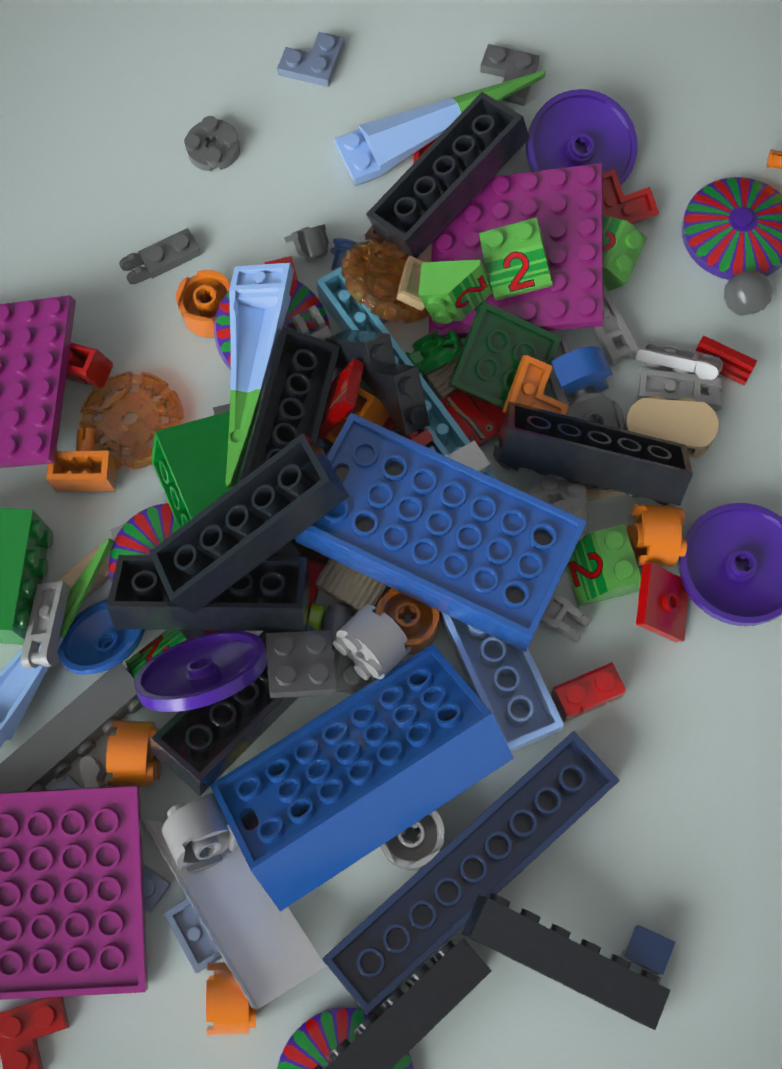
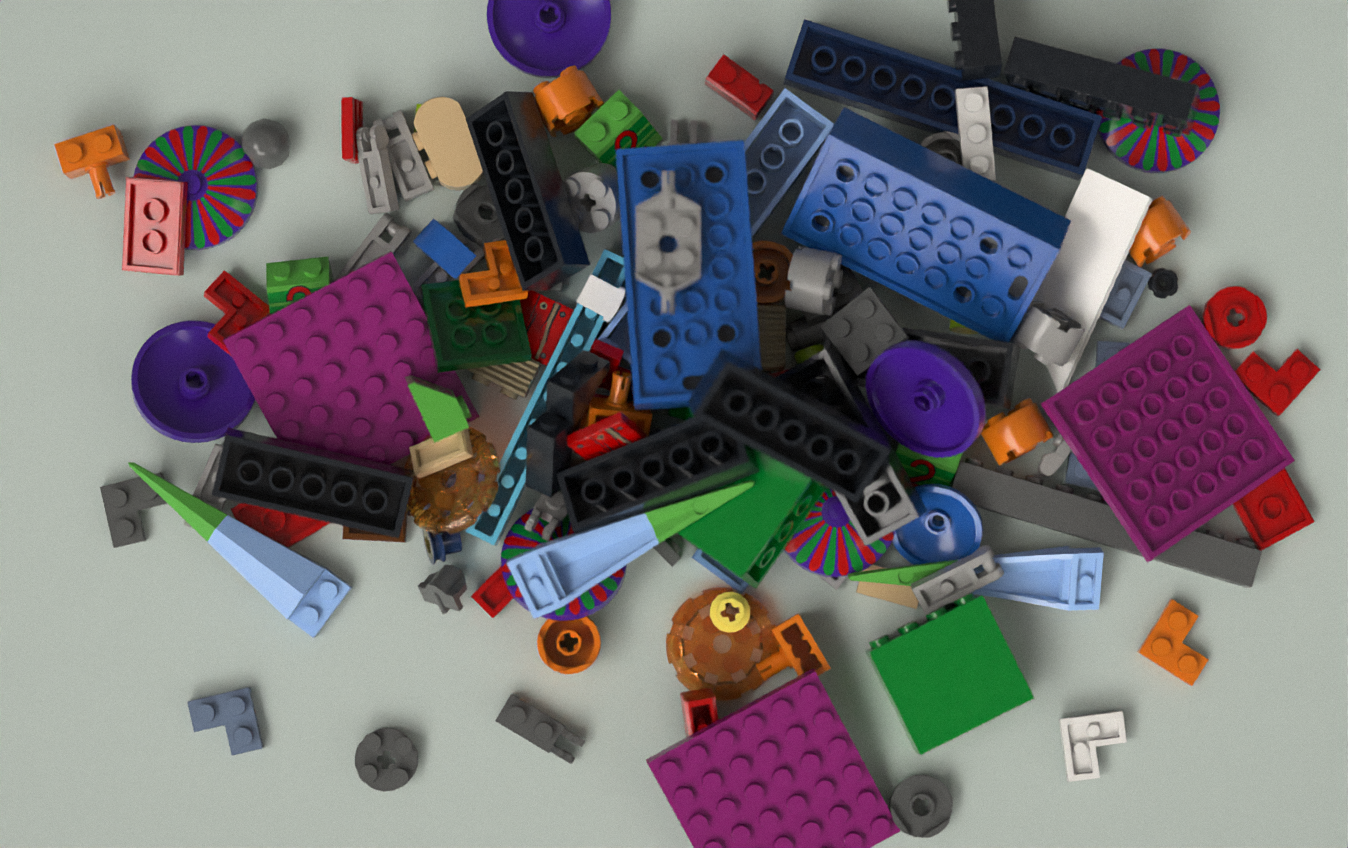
camera: 125 degrees left, 15 degrees up
(88, 1037) = (1244, 303): none -> red plate
(144, 439) = (723, 623): none -> light yellow piece
(181, 990) = (1171, 283): none -> black plate
(420, 875) = (975, 131): none -> white plate
(431, 352) = (498, 399): green piece -> none
(458, 491) = (668, 216): none -> light grey plate
(516, 259) = (373, 364): bright green slope -> none
(662, 603) = (625, 65): red plate -> none
(724, 179) = (154, 226): none -> tile

